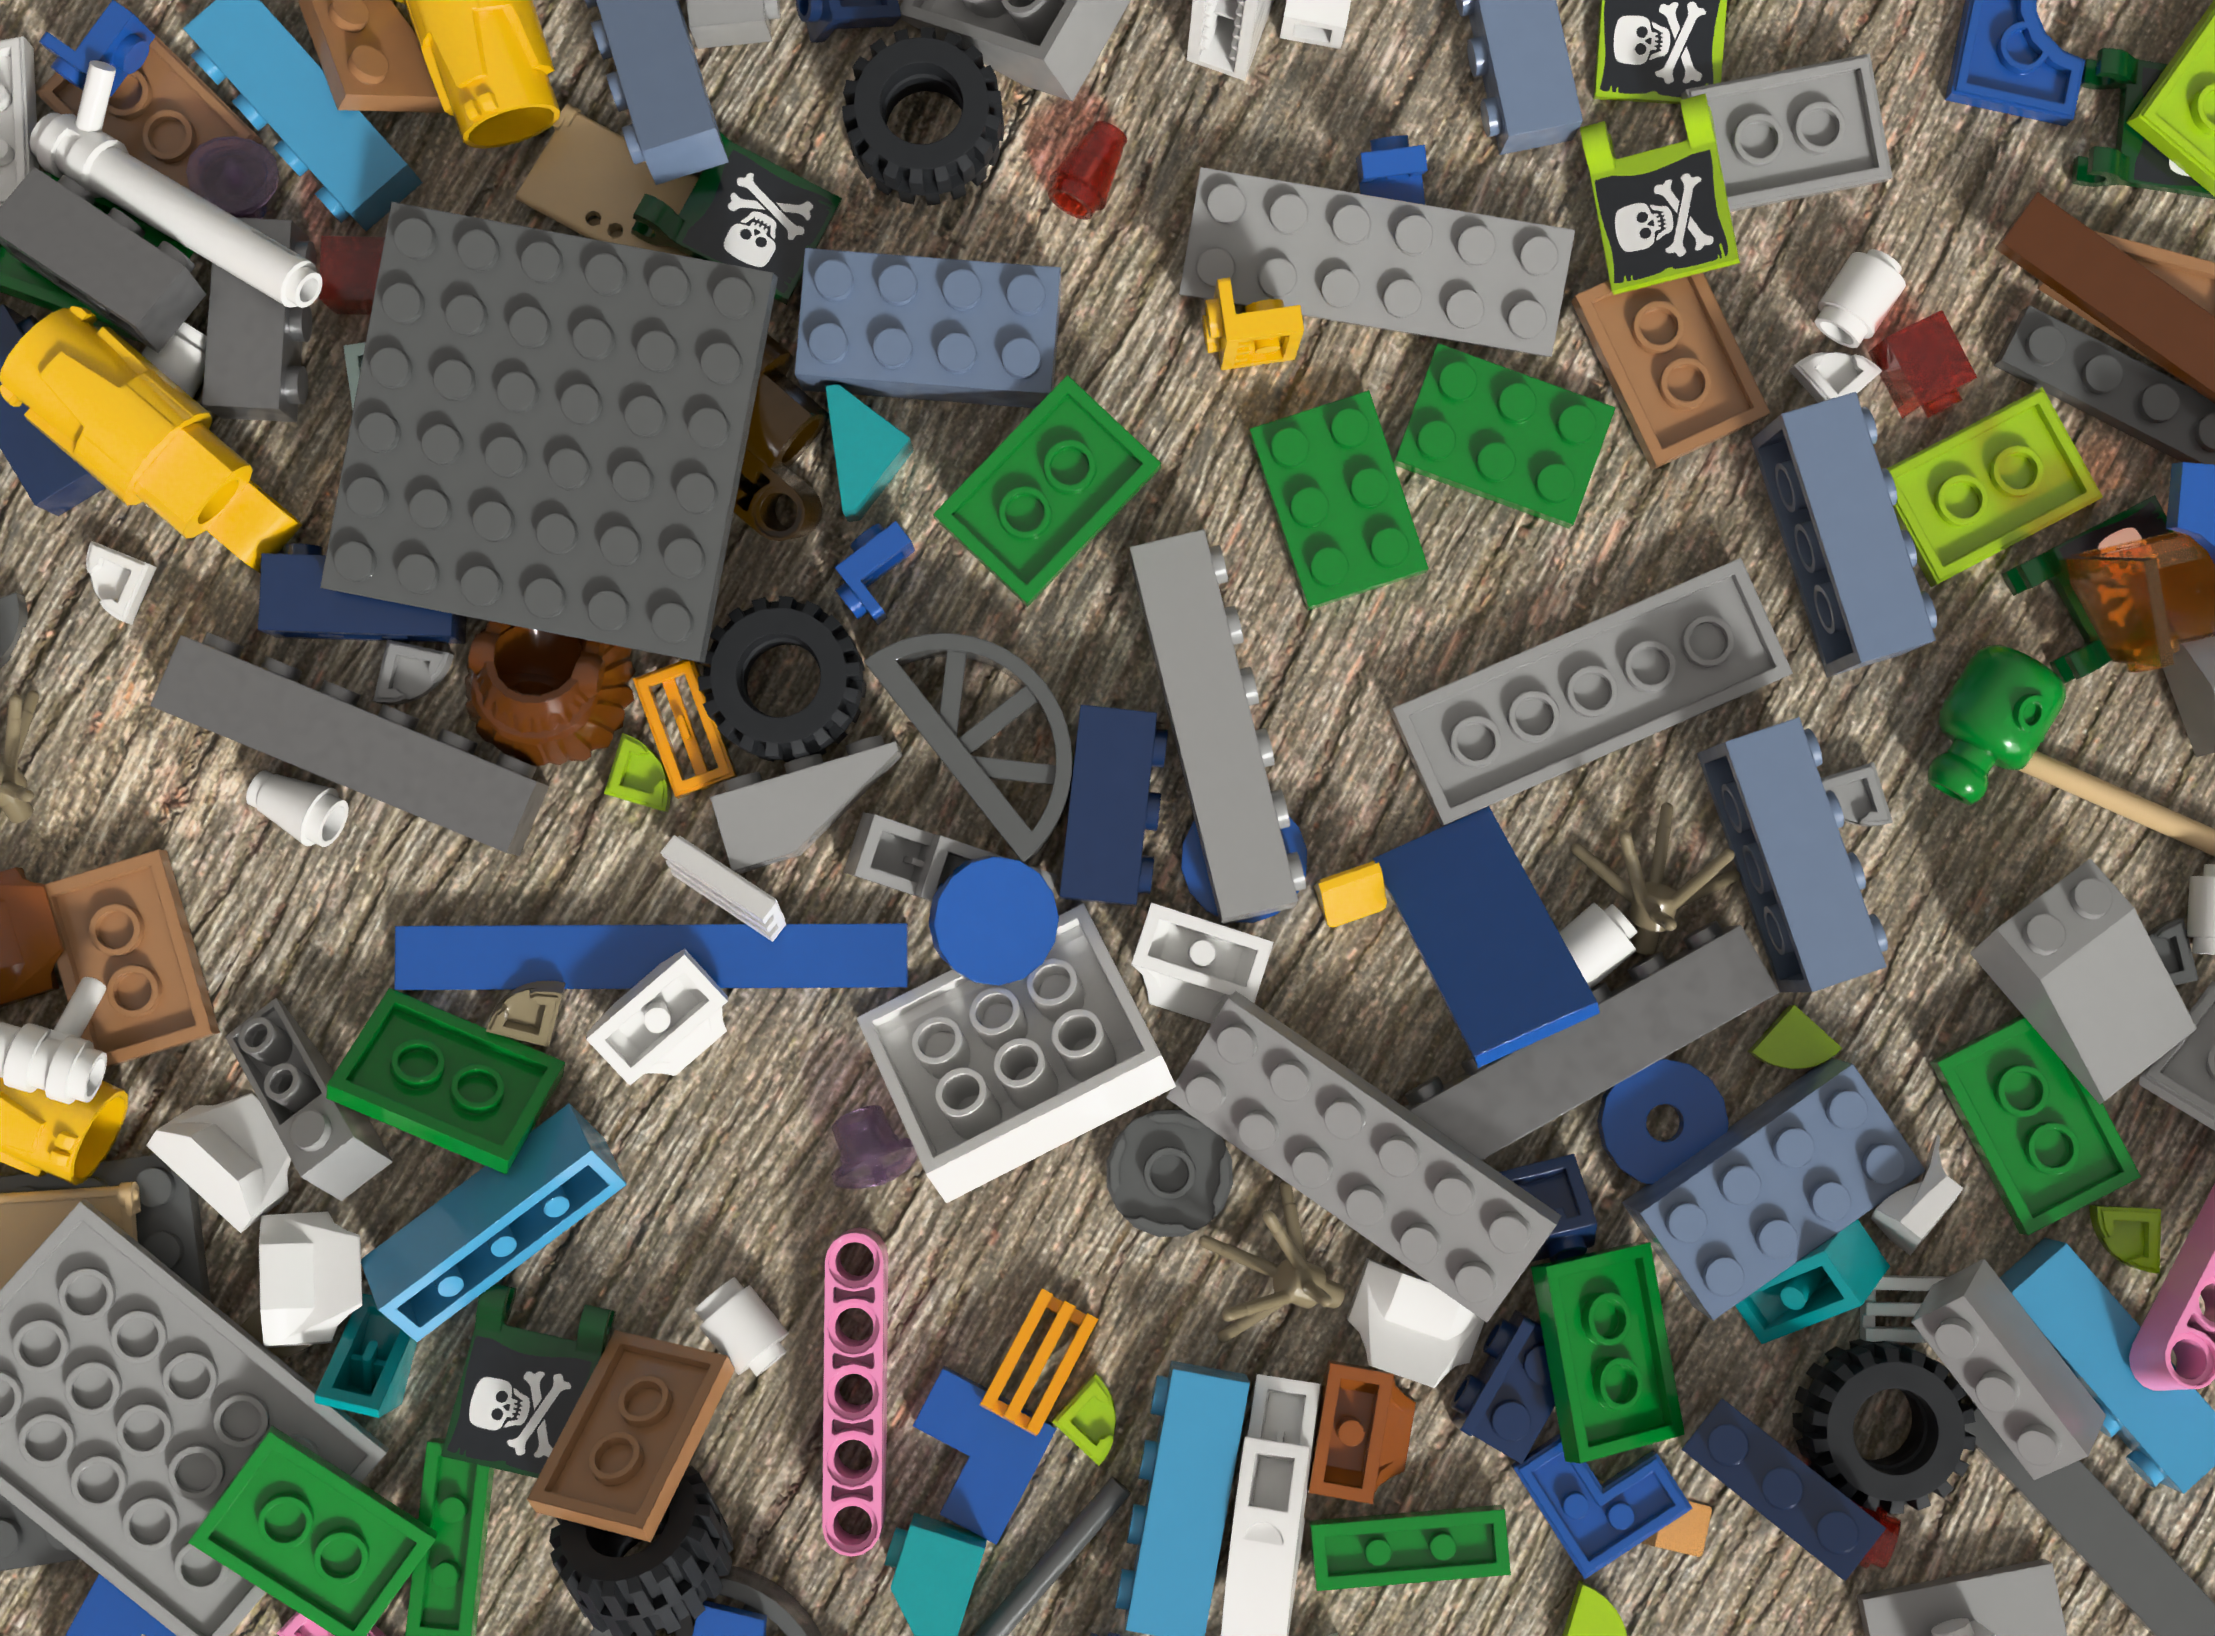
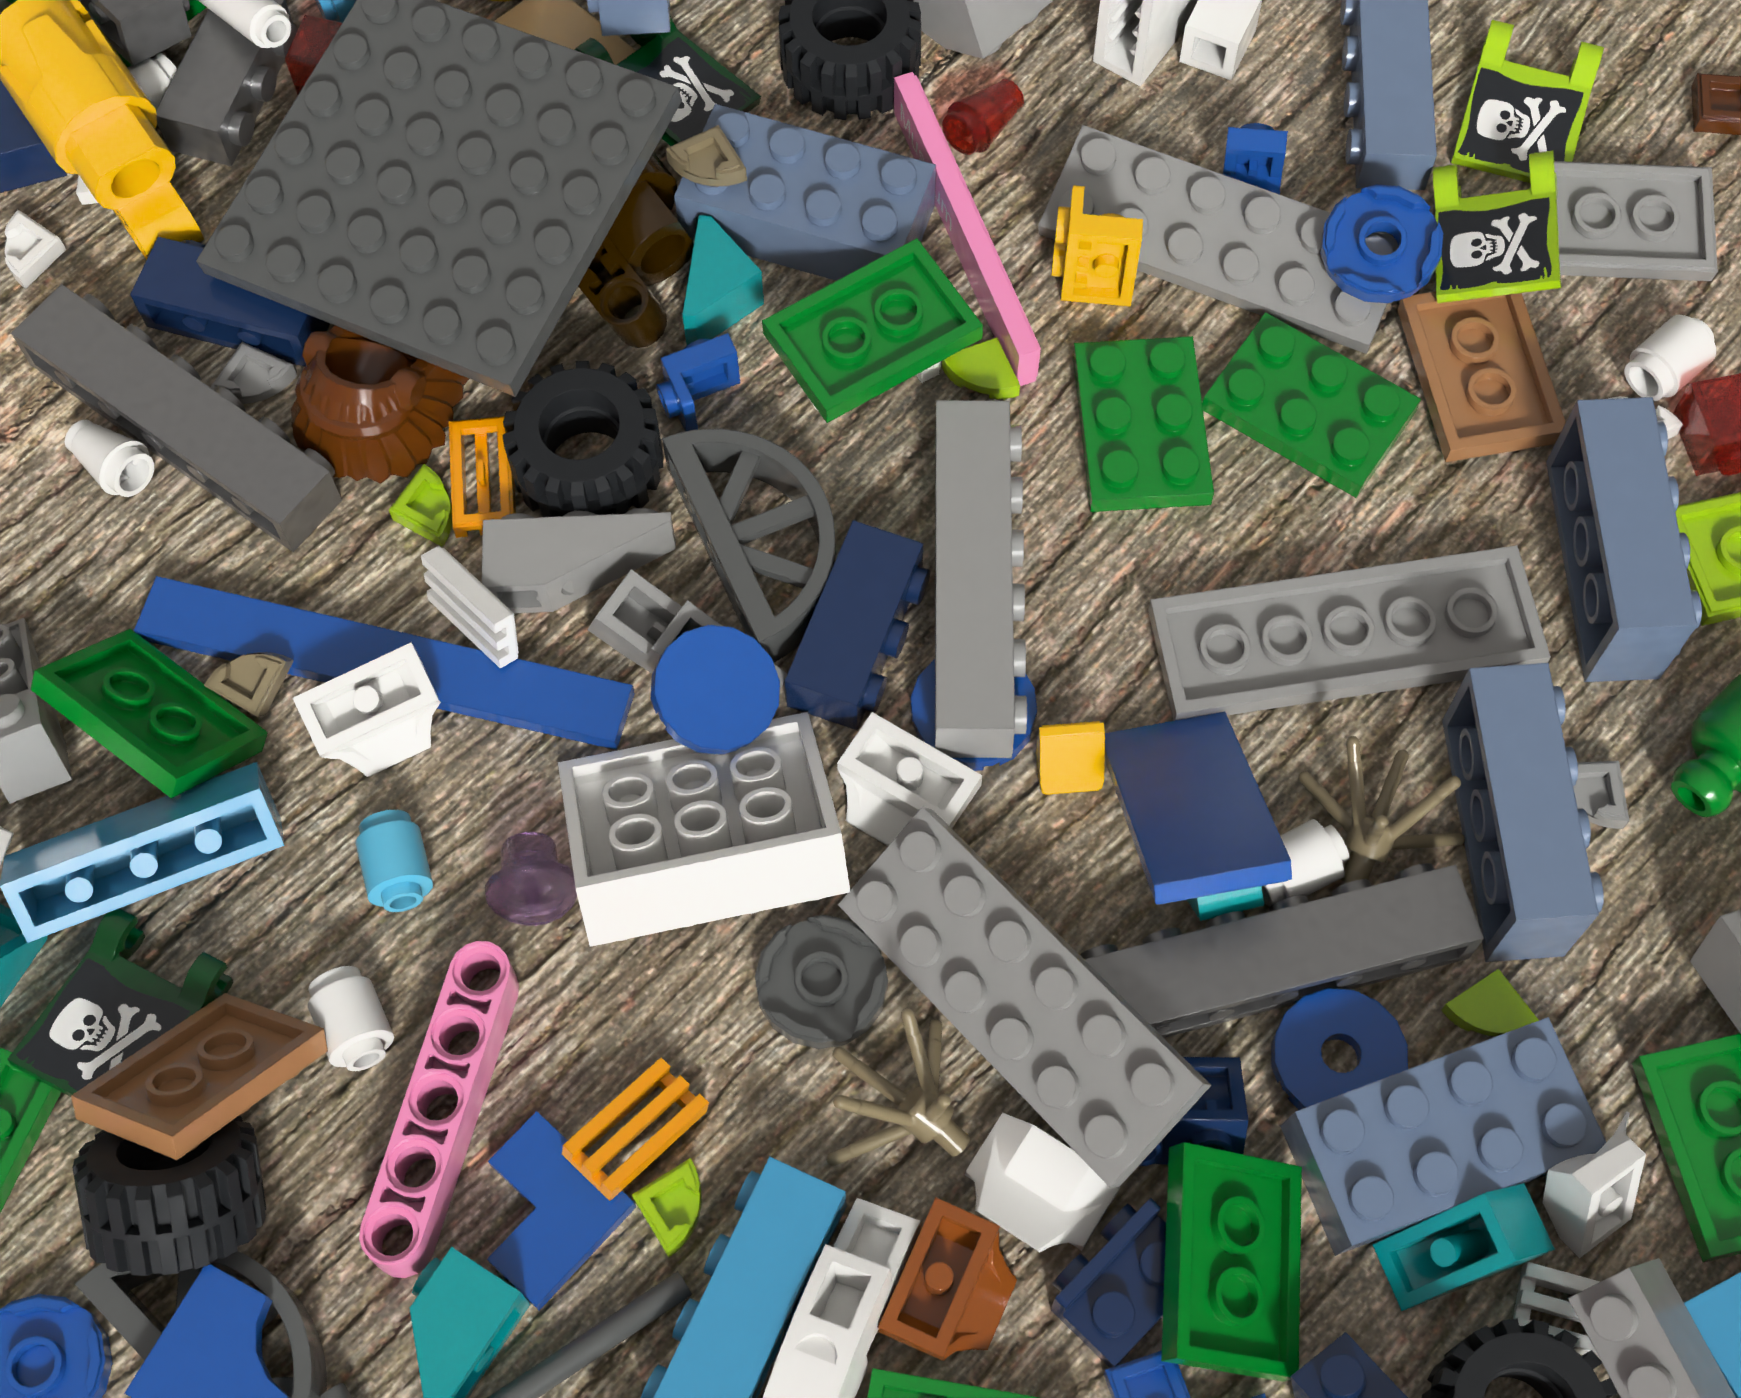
camera: 20 degrees right, 20 degrees down
(732, 1163) = (393, 861): none -> medium azure brick
(821, 331) = (707, 159): none -> dark tan tile
(1103, 317) = (967, 230): none -> bright pink tile
(1172, 483) = (983, 370): none -> lime tile
(1584, 244) = (1381, 276): none -> blue tile

